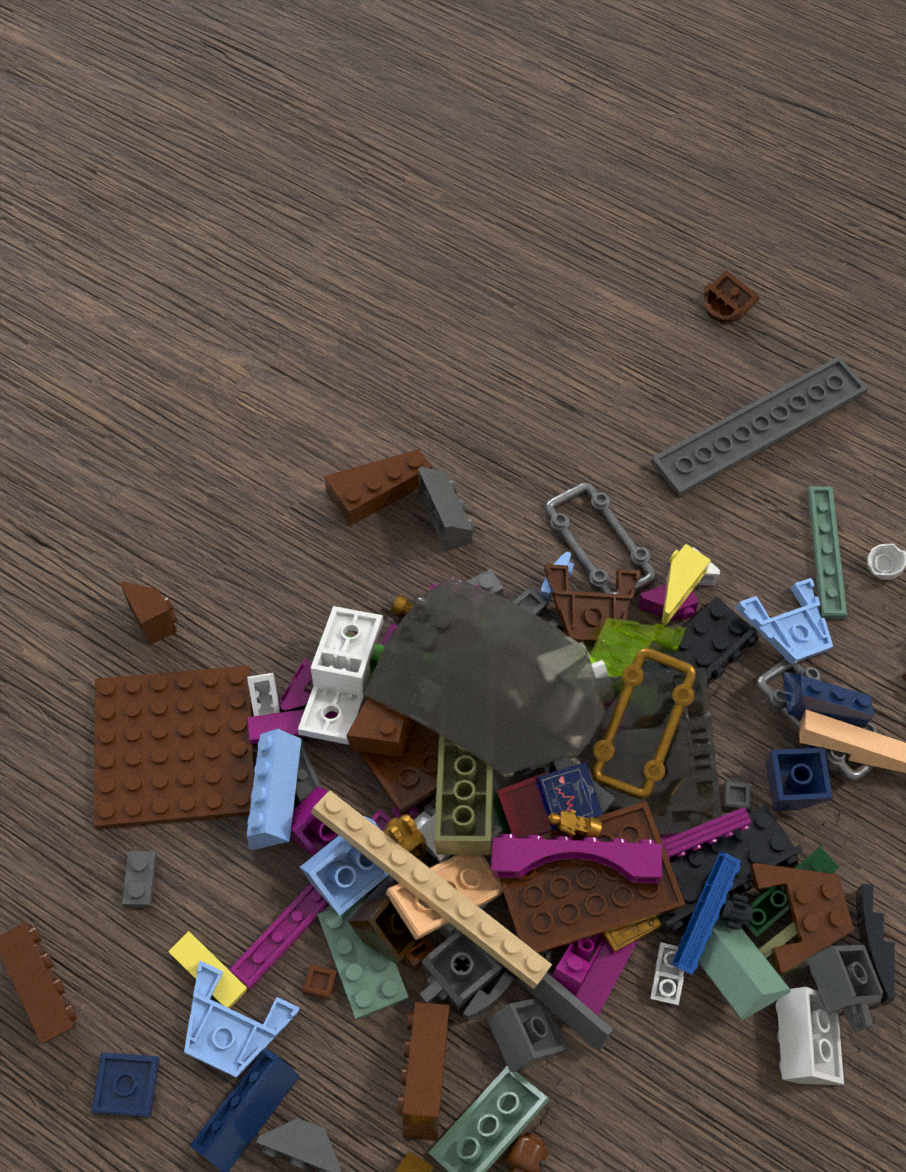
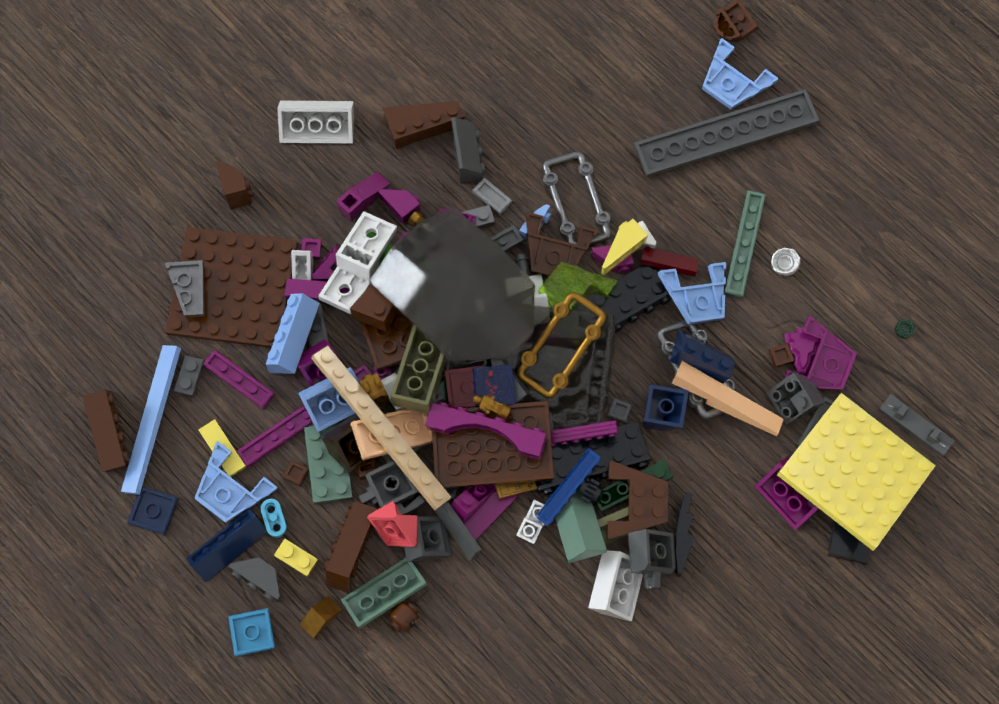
camera: 15 degrees right, 10 degrees up
(97, 955) = (151, 420): none -> light blue tile
(115, 754) = (189, 286): none -> flat silver wing
(210, 868) = (238, 379): none -> magenta tile
(239, 512) = (316, 121): none -> white slope
(272, 665) = (312, 245): none -> magenta plate
(304, 1055) = (274, 518): none -> medium azure plate
(321, 591) = (361, 196): none -> magenta slope
(349, 1105) = (296, 557): none -> light yellow plate
(374, 590) = (400, 203): none -> magenta slope
(482, 1027) = (394, 526): none -> coral slope
(490, 557) = (492, 196): none -> light grey tile
(738, 591) = (668, 260): none -> dark red tile
(745, 369) = (730, 85): none -> light blue wing

